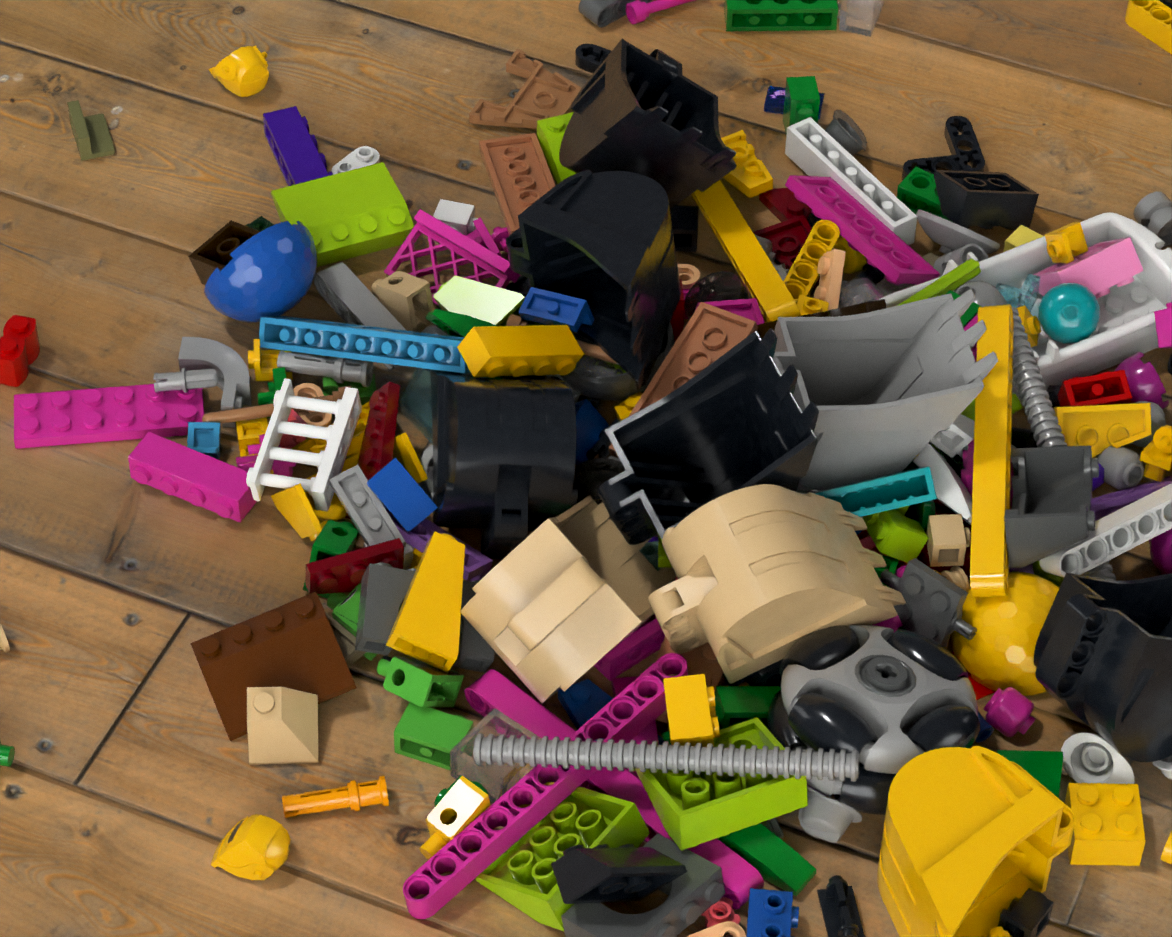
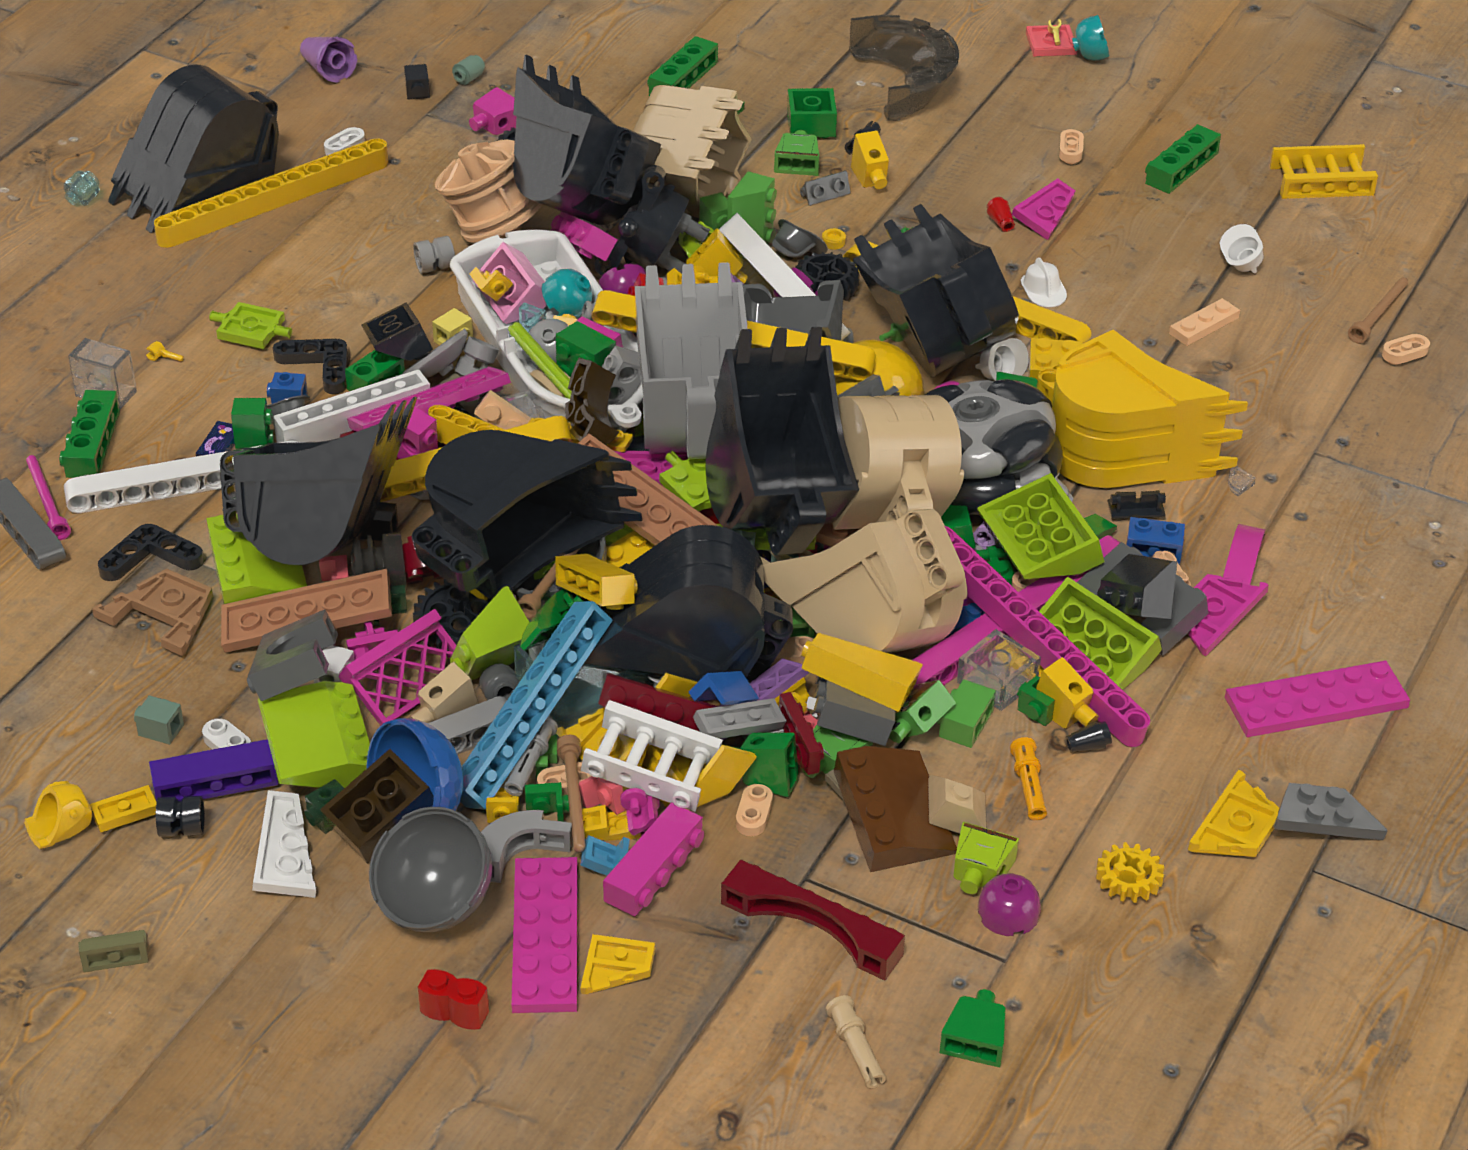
camera: 85 degrees left, 5 degrees down
(66, 464) = (616, 962): none -> yellow wing
(84, 656) = (759, 892): none -> dark red arch
(143, 779) = (1009, 904): none -> magenta cylinder
(151, 307) = (430, 870): none -> dark grey piece
(185, 380) = (530, 858): light grey axle -> none
(189, 888) = (1130, 872): none -> yellow gear
(194, 221) = (283, 849): none -> white wing
(207, 751) = (982, 856): none -> lime torso
(242, 144) = (180, 816): none -> black wheel
(251, 107) = (123, 808): none -> yellow plate
(253, 848) = (1085, 832): yellow helmet -> none
(279, 562) = (754, 810): none -> light nougat plate
(372, 115) = (159, 719): none -> sand green brick
(403, 161) = (291, 655): none -> dark grey arch
(404, 855) = (1090, 737): none -> black cone
(555, 309) = (529, 566): blue panel -> none
(666, 757) = (1038, 549): light grey piece -> none
(691, 710) = (995, 527): yellow brick -> none
(729, 84) = (144, 483): none -> white beam
(790, 222) = (419, 435): none -> dark pink brick
(883, 137) = (286, 385): none -> blue brick
(931, 36) = (157, 349): none -> yellow hand
(993, 95) = (250, 325): none -> lime plate

